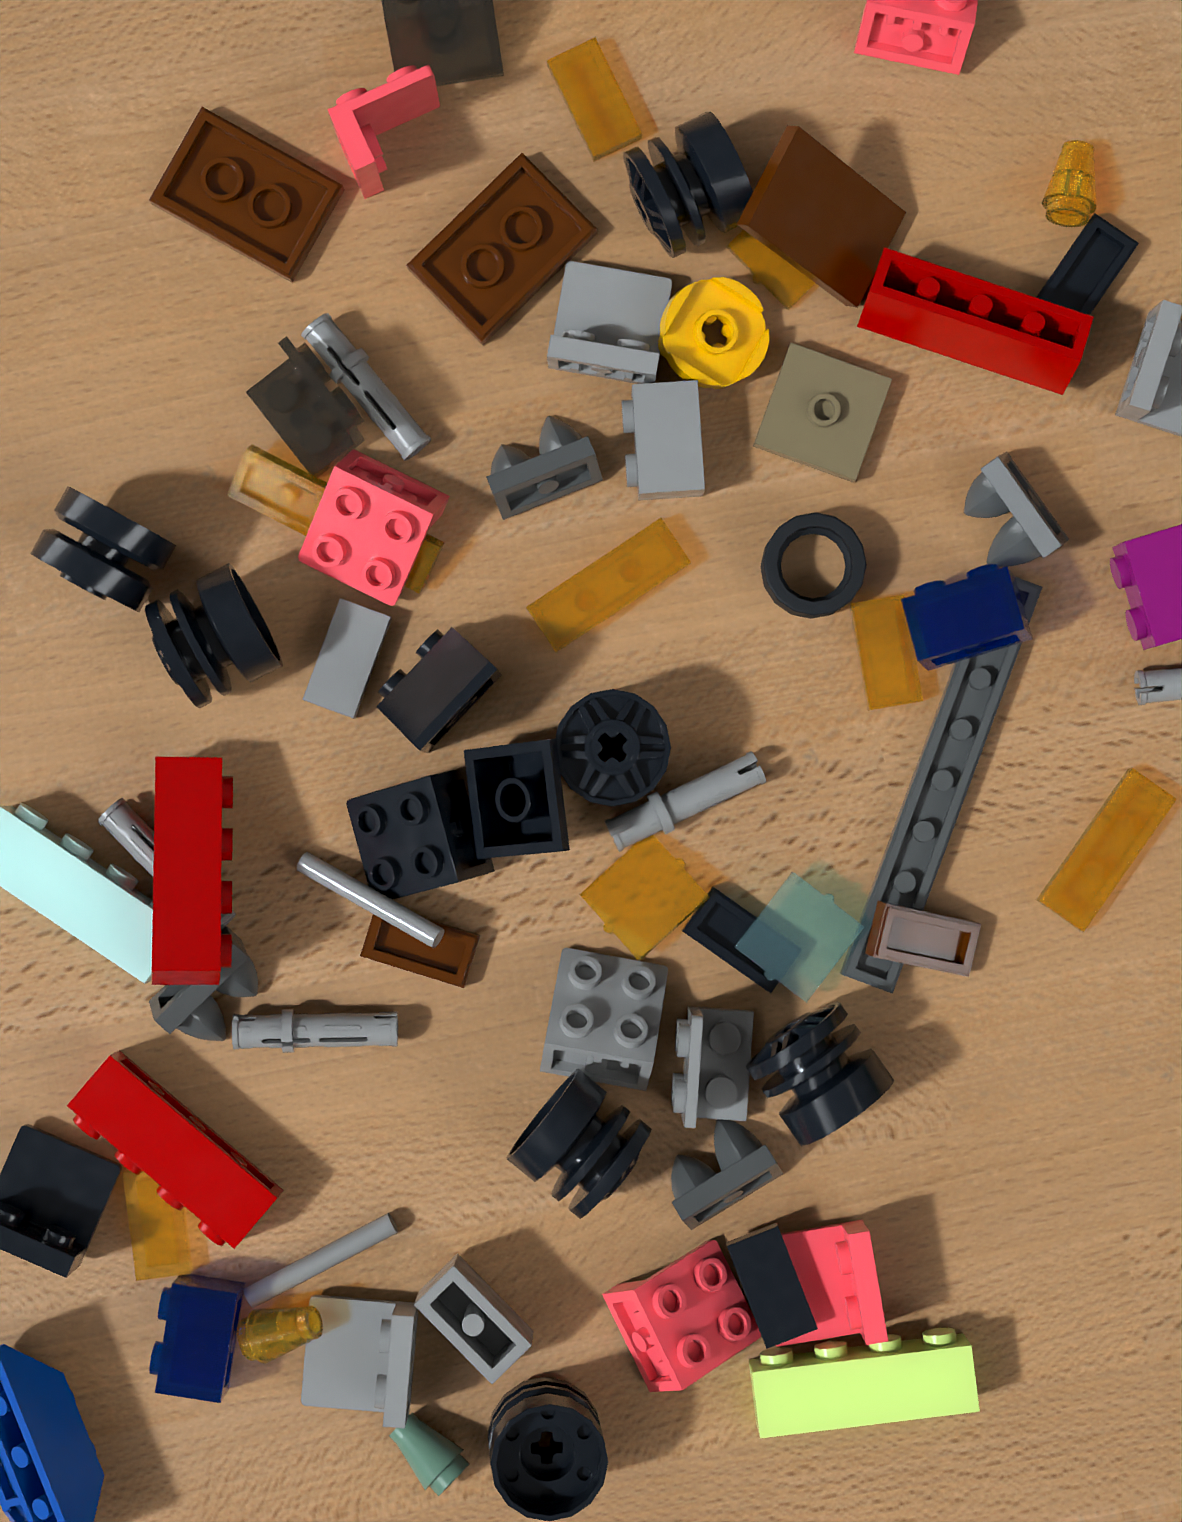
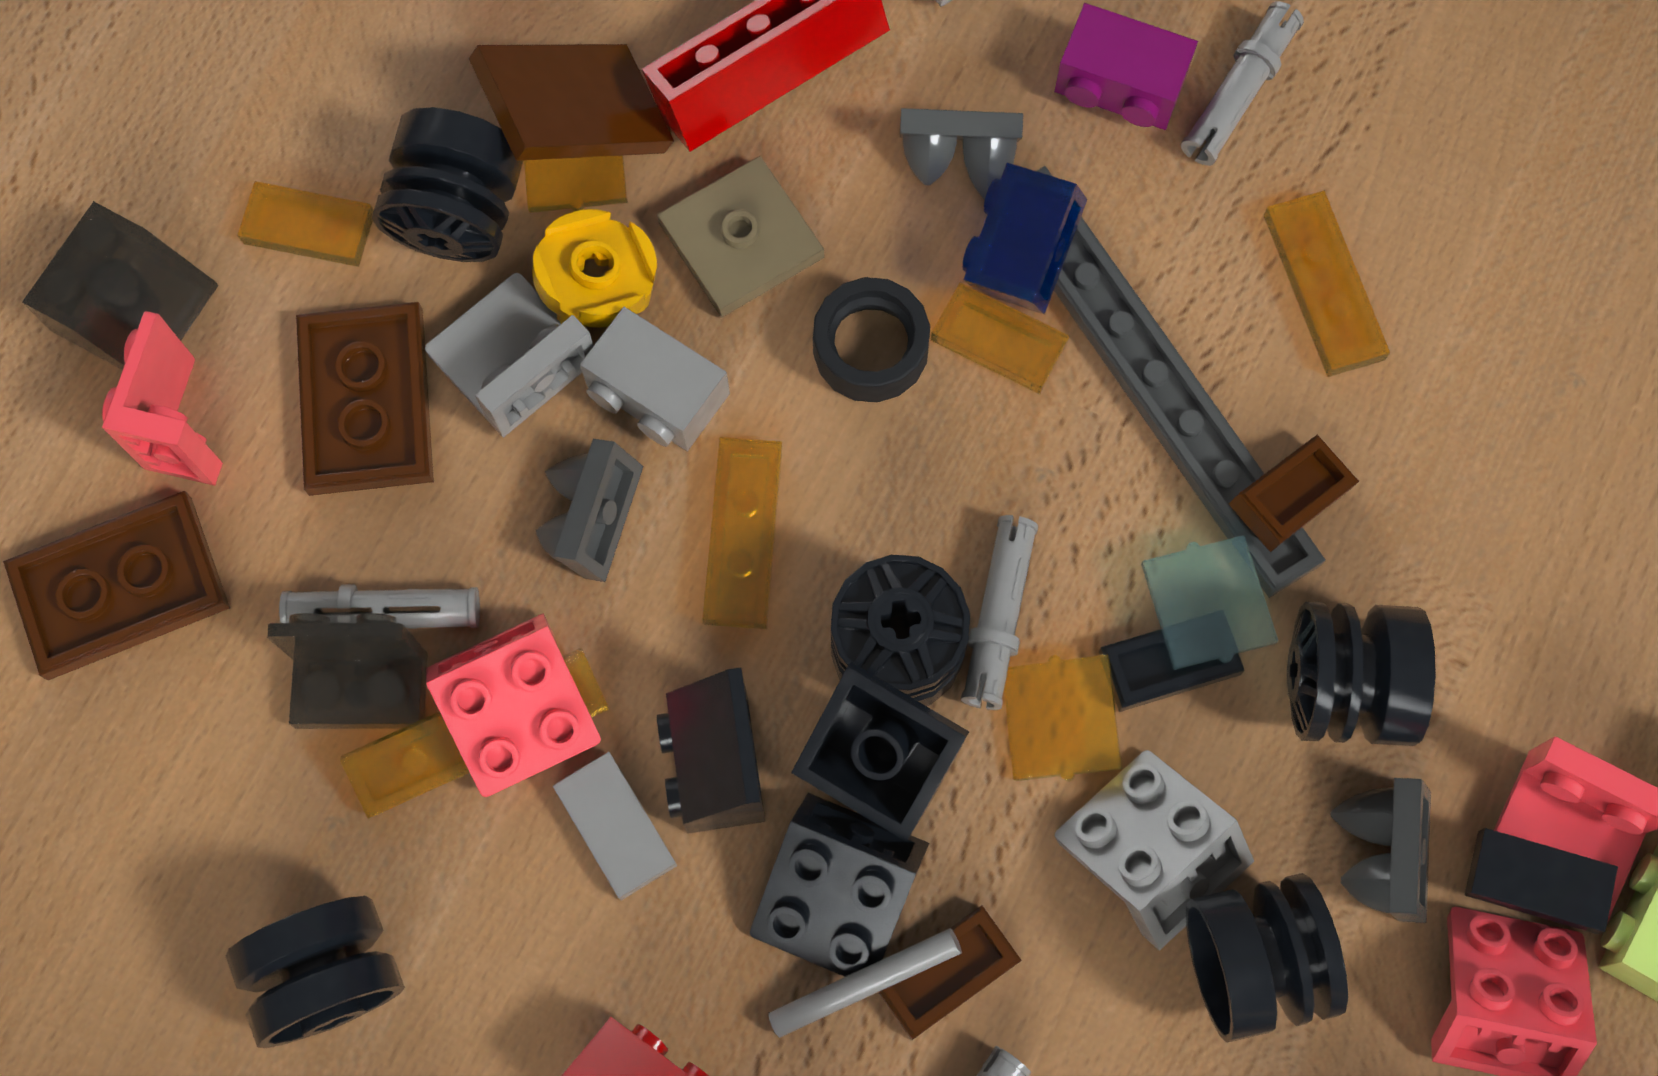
camera: 55 degrees left, 15 degrees down
(212, 636) = (487, 929): black wheel -> none
(715, 1060) = (1275, 776): light grey bracket -> none

